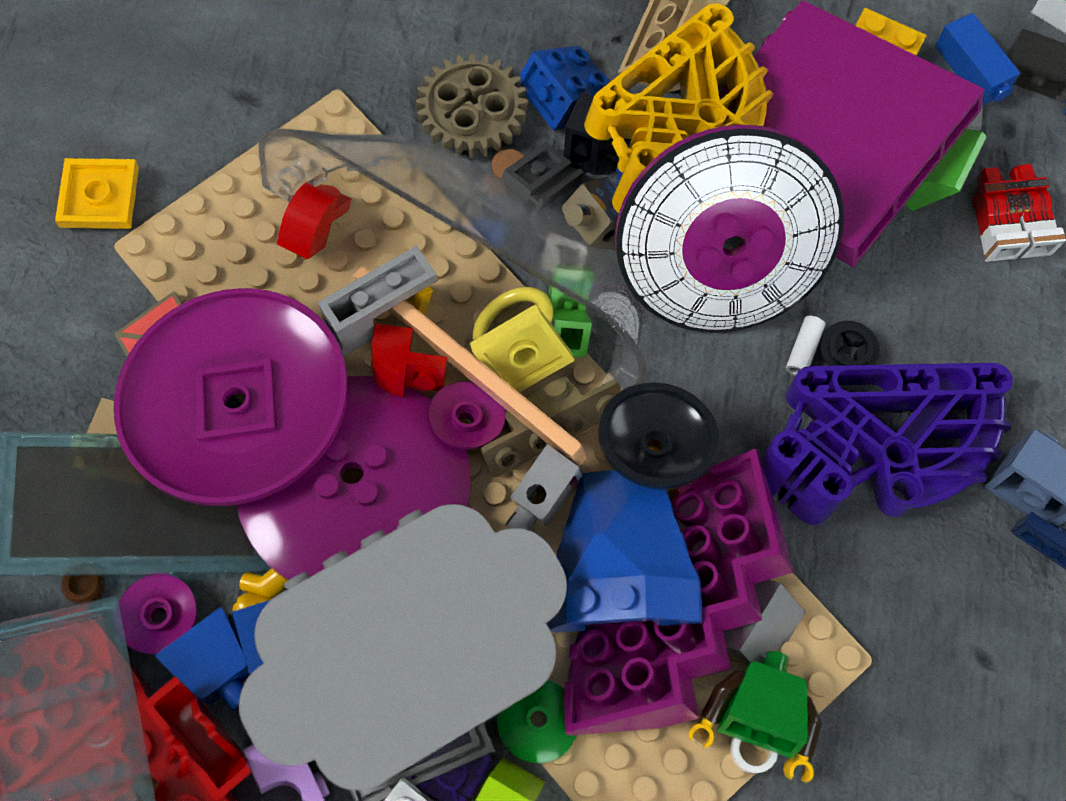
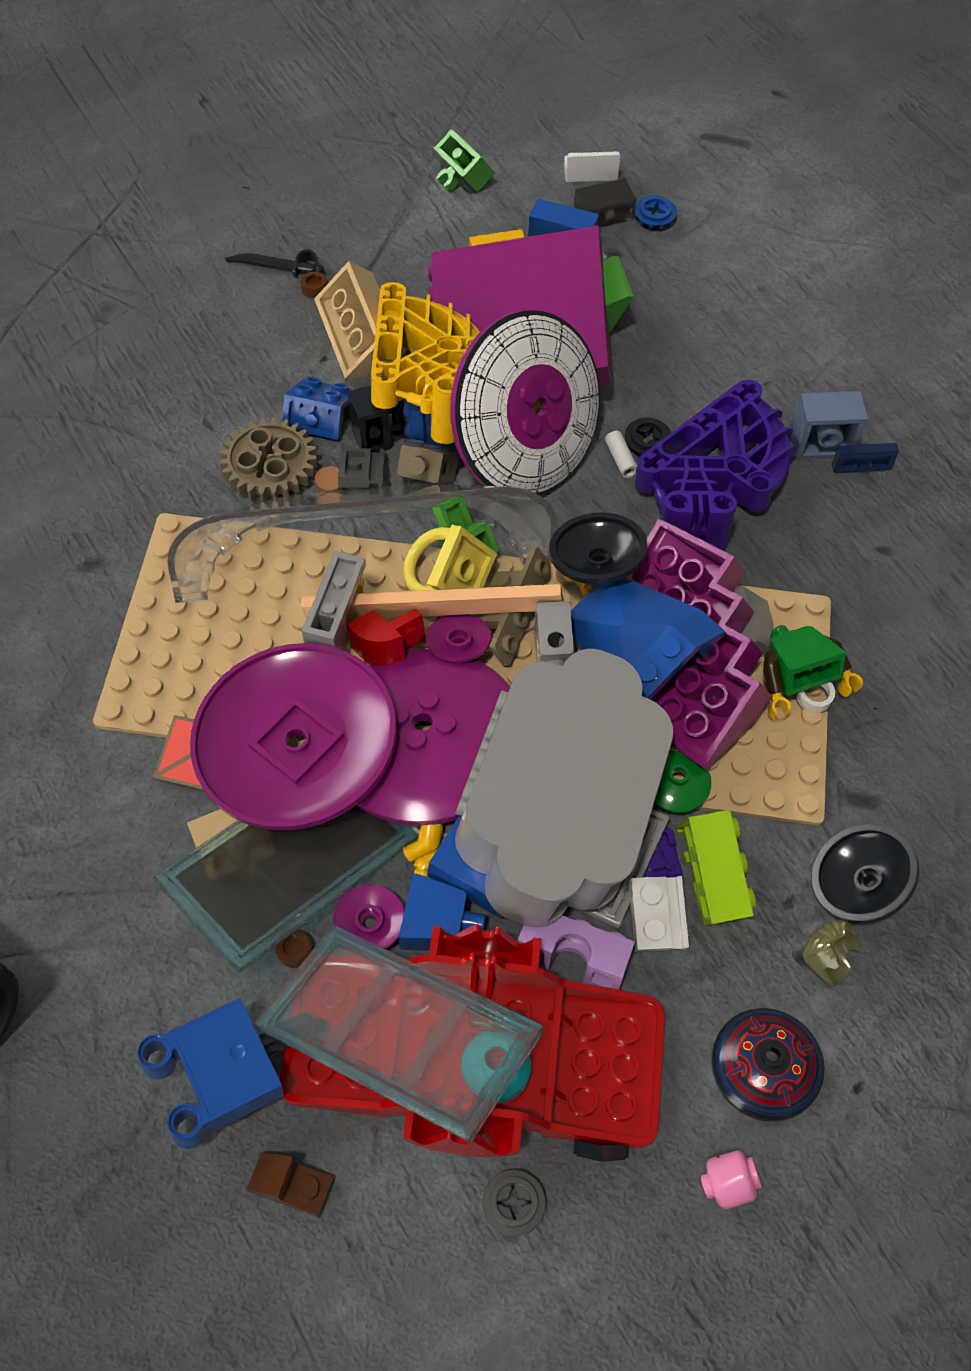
camera: 40 degrees left, 10 degrees down
(97, 193) = (47, 697): yellow plate -> none
(310, 217) = (233, 597): red brick -> none
(1015, 215) = (670, 297): hips -> none

